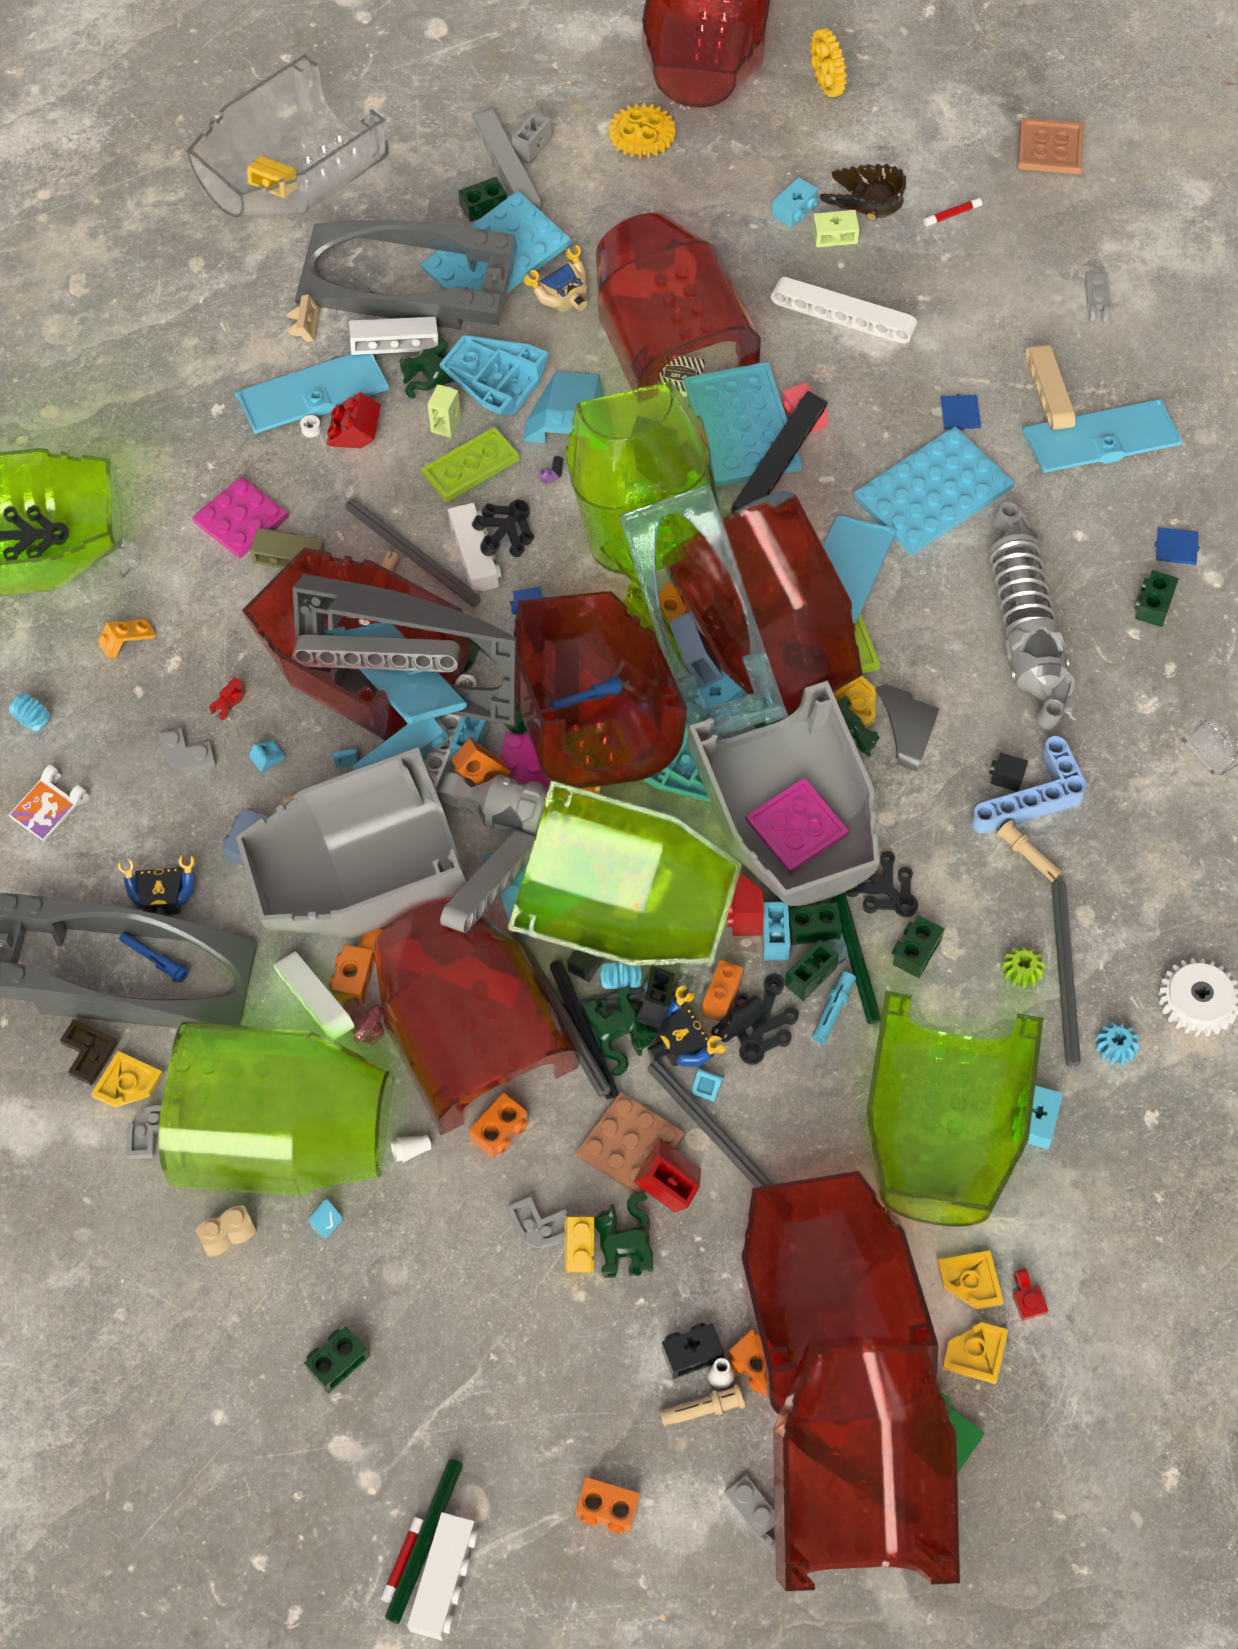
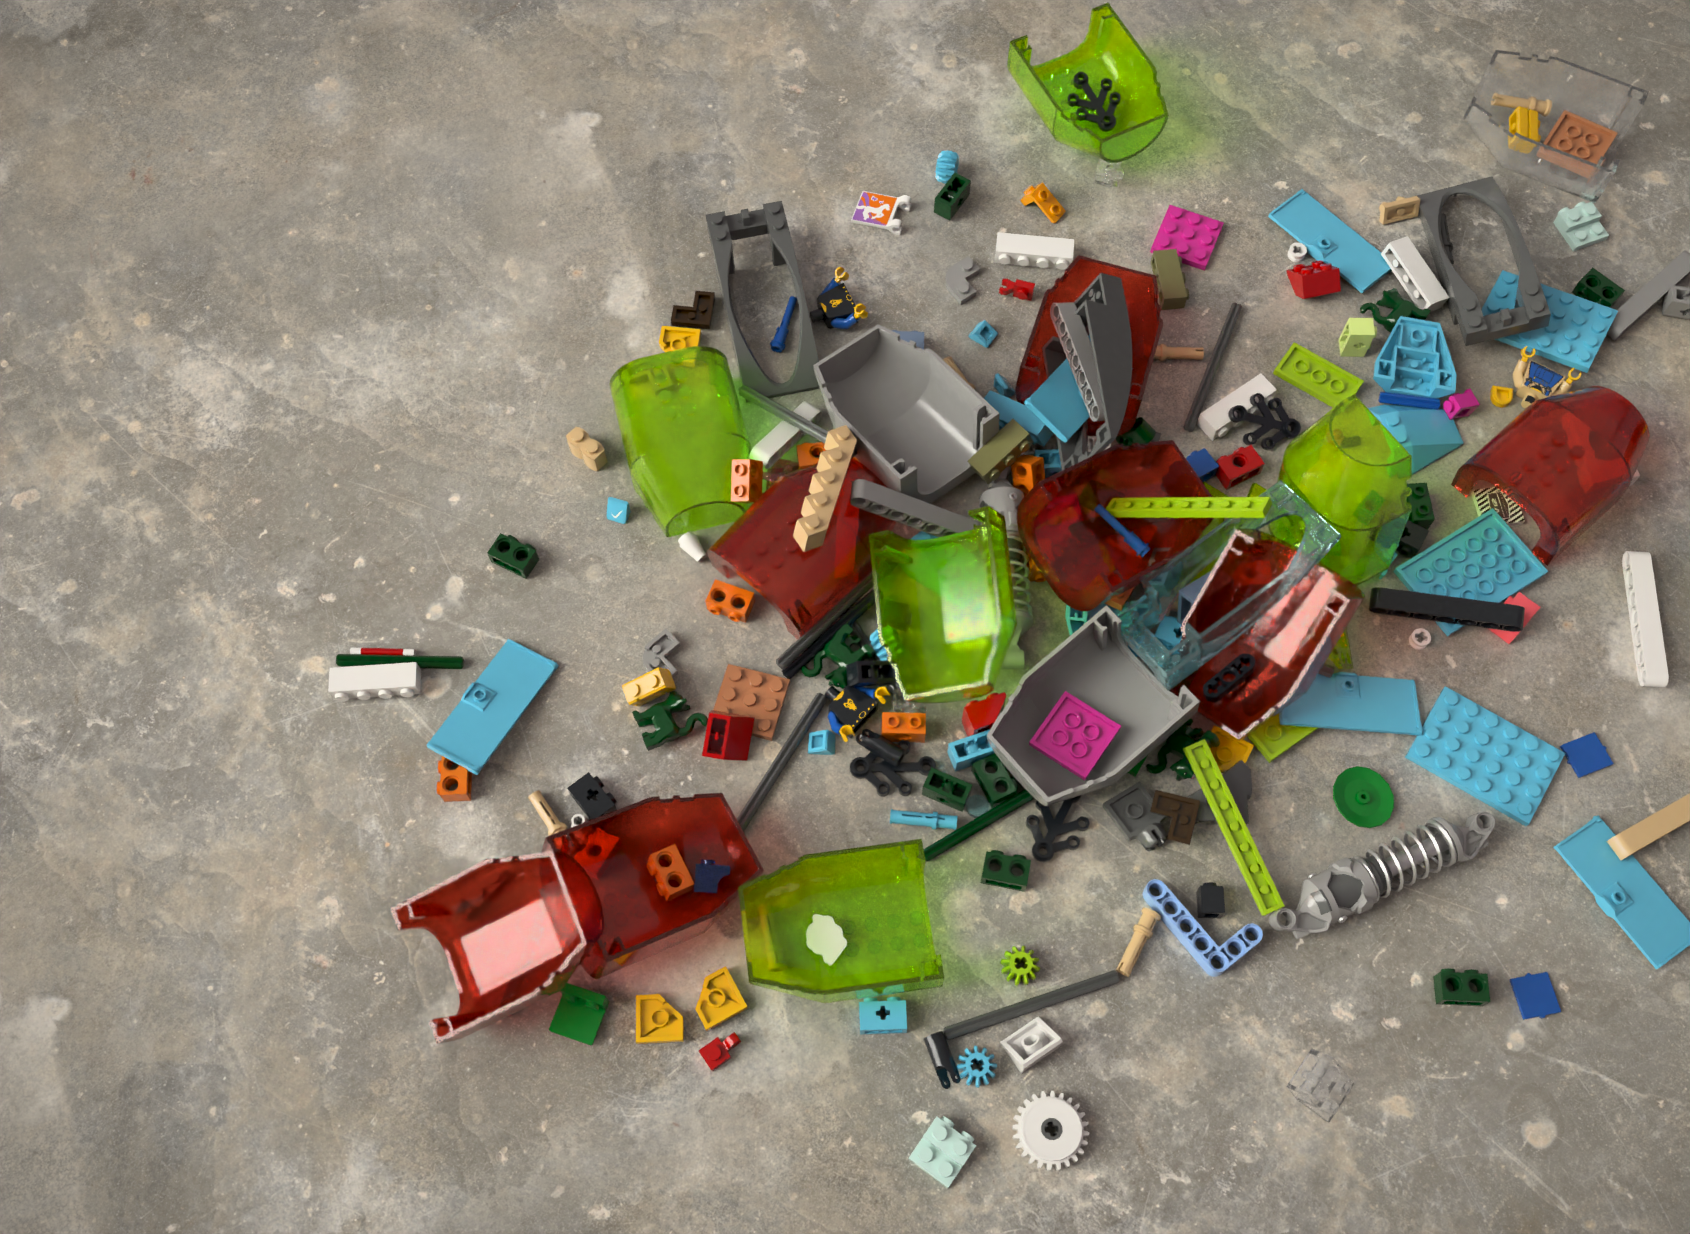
camera: 70 degrees right, 5 degrees up
(73, 720) = (952, 196): none -> dark green brick
(186, 666) = (1034, 251): none -> white brick
(248, 156) = (1532, 103): none -> tan pin
(309, 138) = (1580, 137): none -> nougat plate
(311, 970) = (785, 414): none -> dark grey axle
(369, 1047) = (746, 480): none -> orange brick
(400, 182) = (1581, 225): none -> light aqua plate
(441, 945) = (825, 488): none -> tan brick
(447, 774) = (1000, 451): none -> olive brick
(533, 398) = (1408, 400): none -> blue axle
(533, 1435) = (492, 706): none -> medium azure door
(543, 560) = (1249, 463): none -> red brick
(558, 357) = (1461, 405): none -> dark pink brick
(560, 323) = (1501, 396): none -> yellow tile
(604, 614) = (1190, 507): none -> lime plate
(784, 673) = (1232, 668): none -> black beam
(797, 487) = (1413, 639): none -> white bush
(814, 1276) = (676, 871): none -> orange brick
(836, 1239) = (708, 875): none -> clear blue brick
(903, 804) = (1133, 817): none -> dark grey plate
(915, 757) = (1181, 810): none -> dark brown plate
(939, 1144) = (825, 938): none -> sticker
(944, 718) = (1233, 827): none -> lime plate
(945, 602) = (1363, 797): none -> green piece
(1097, 1073) = (942, 1058): none -> black piece
(1109, 984) = (1031, 1044): none -> white slope
(1193, 1105) = (943, 1151): none -> light aqua plate

